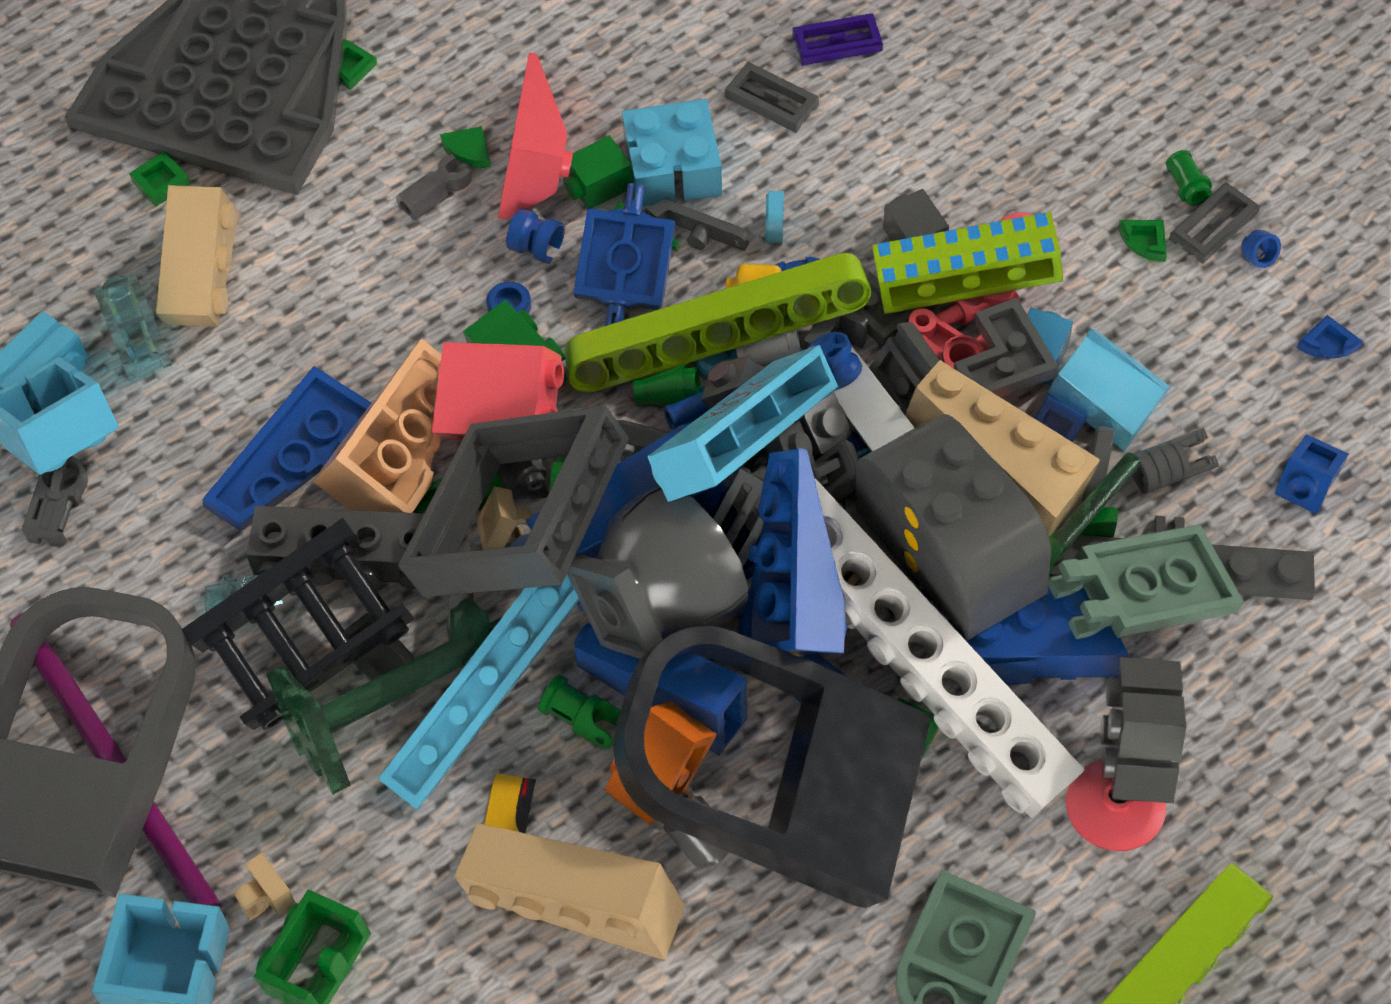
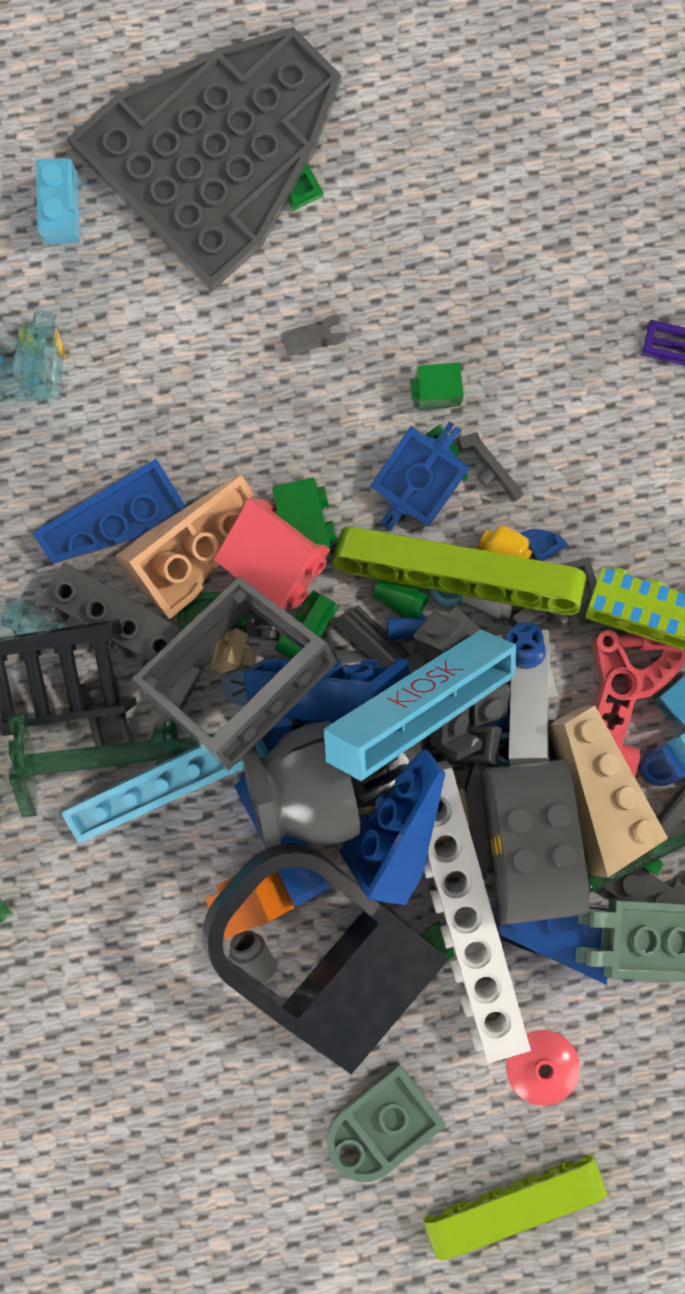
camera: 20 degrees right, 25 degrees up
(81, 175) = (57, 201): none -> medium azure brick
(156, 175) = (117, 228): green tile -> none
(196, 256) = (110, 321): tan wedge -> none
(467, 146) = (355, 310): green tile -> none
(510, 802) = (143, 865): yellow sticker -> none
(513, 292) = (322, 464): blue tile -> none
(534, 234) = (366, 418): blue wheel -> none
(537, 145) = (403, 341): coral wedge -> none
(573, 888) = (147, 960): tan wedge -> none
(579, 711) = (219, 825): green piece -> none
(673, 140) = (503, 391): medium azure piece -> none
(768, 102) = (600, 345): dark grey tile -> none
(774, 217) = (548, 491): medium azure tile -> none
(903, 363) = (577, 678): dark grey plate -> none
(912, 217) = (648, 548): dark grey brick -> none
(1015, 353) = (658, 714): dark grey plate -> none
(1144, 730) = (577, 1057): dark grey piece -> none

